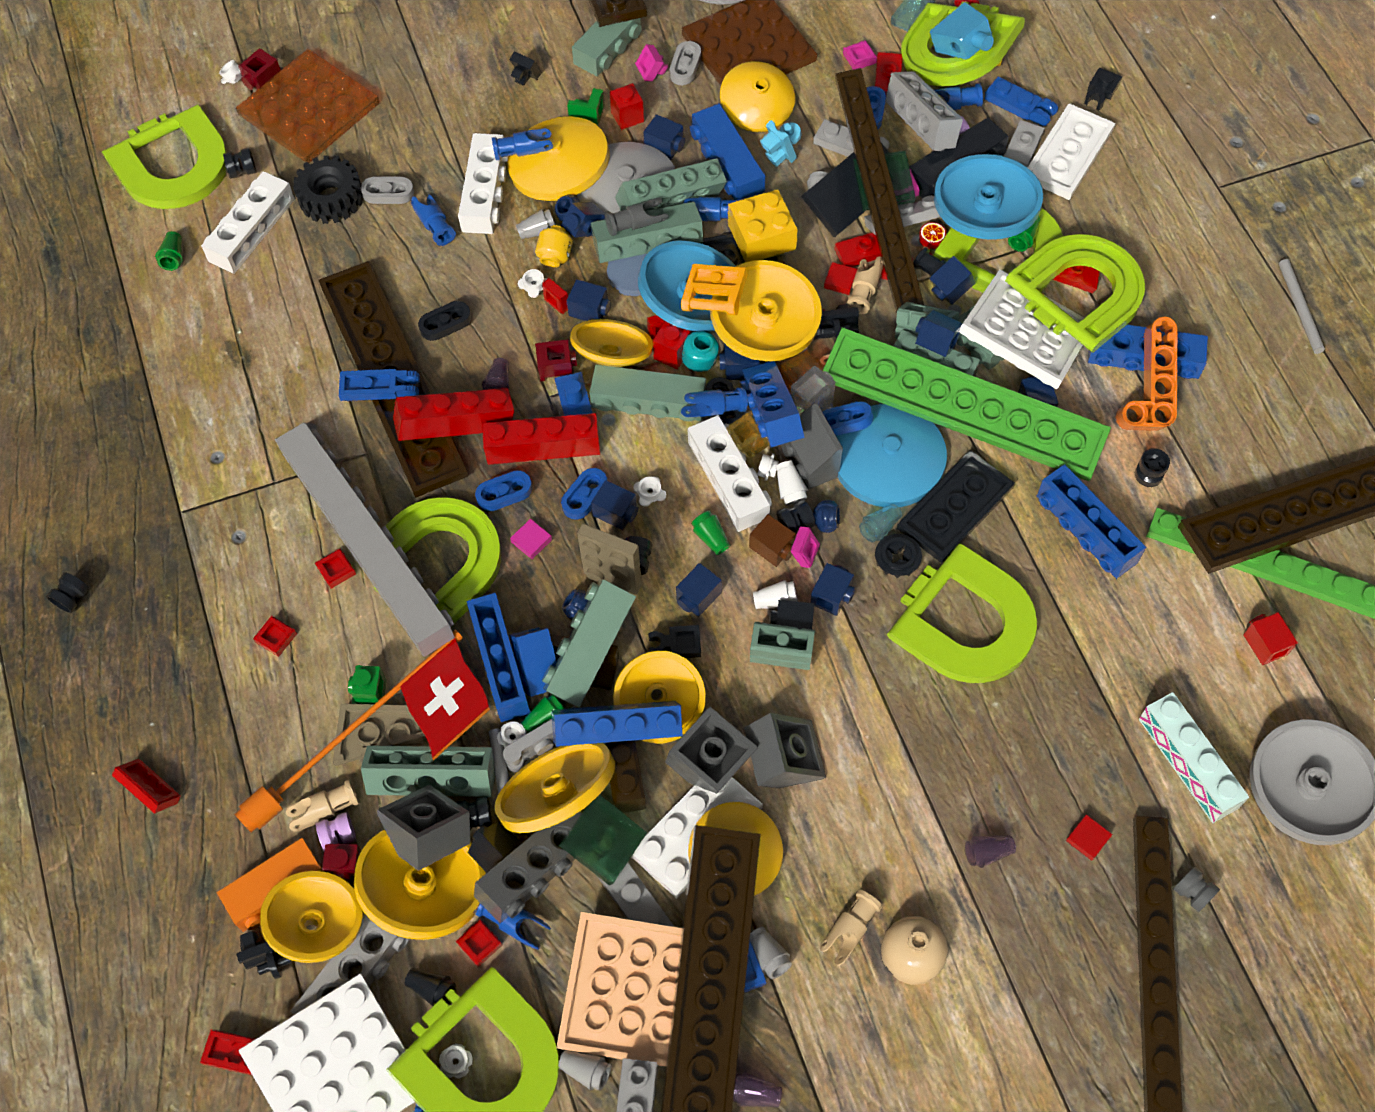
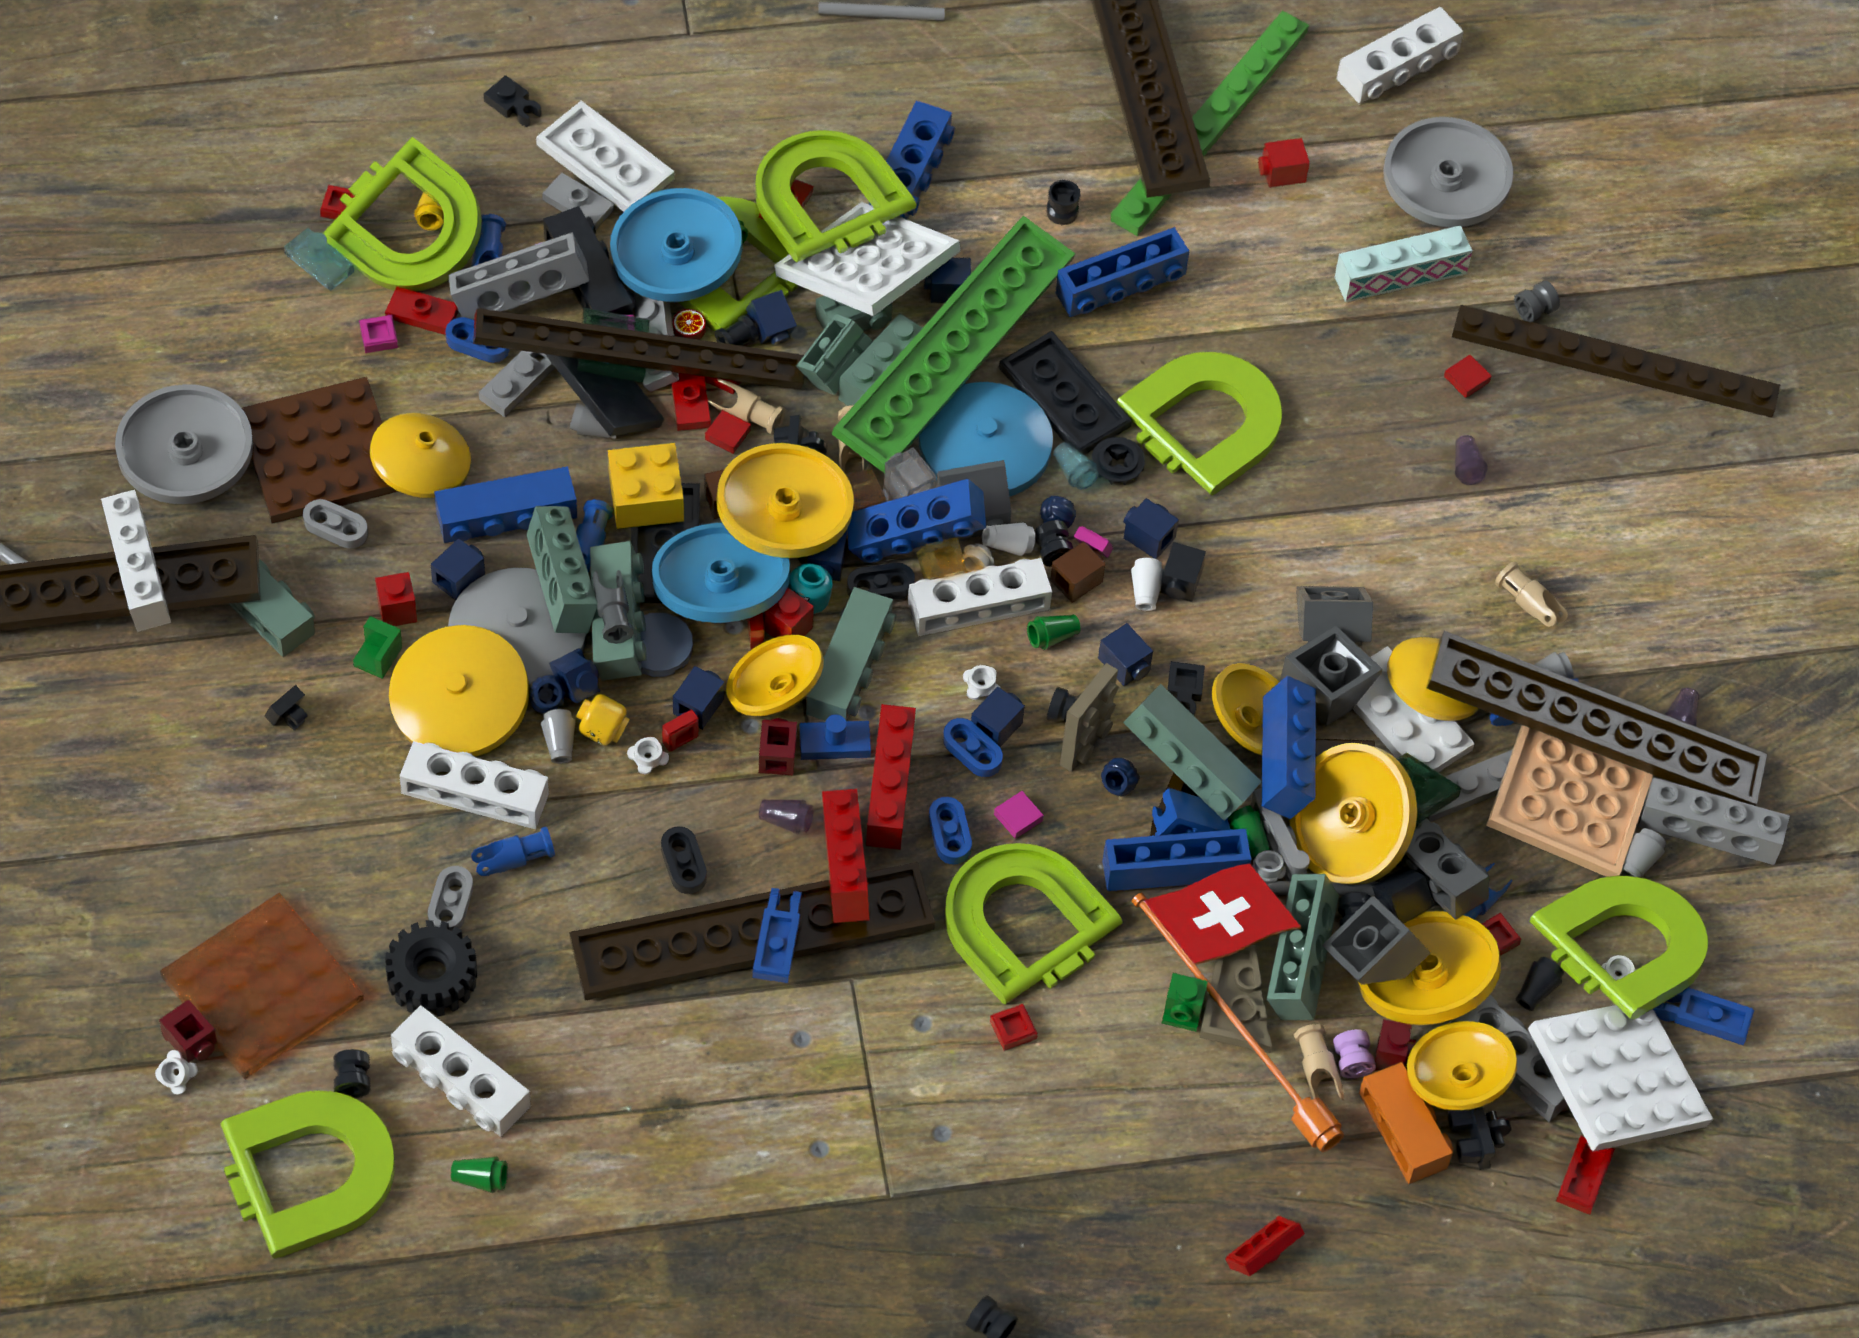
camera: 85 degrees left, 5 degrees down
(275, 636) = (1091, 1101): red tile -> none
(366, 540) = (990, 976): light grey brick -> none
(522, 143) = (450, 717): blue piece -> none
(650, 63) = (325, 562): dark pink tile -> none
(714, 281) = (748, 530): light orange plate -> none
(715, 402) = (898, 578): blue piece -> none
(779, 143) = (514, 439): medium azure hips -> none
(782, 646) = (1215, 585): sand green brick -> none
(849, 417) = (940, 462): blue plate -> none
(914, 950) = (1560, 548): tan cylinder -> none
(938, 333) = (869, 335): dark blue brick -> none
(962, 33) = (421, 201): dark azure torso -> none
(1020, 102) = (512, 184): blue hinge -> none
(1155, 373) = (966, 159): orange beam -> none

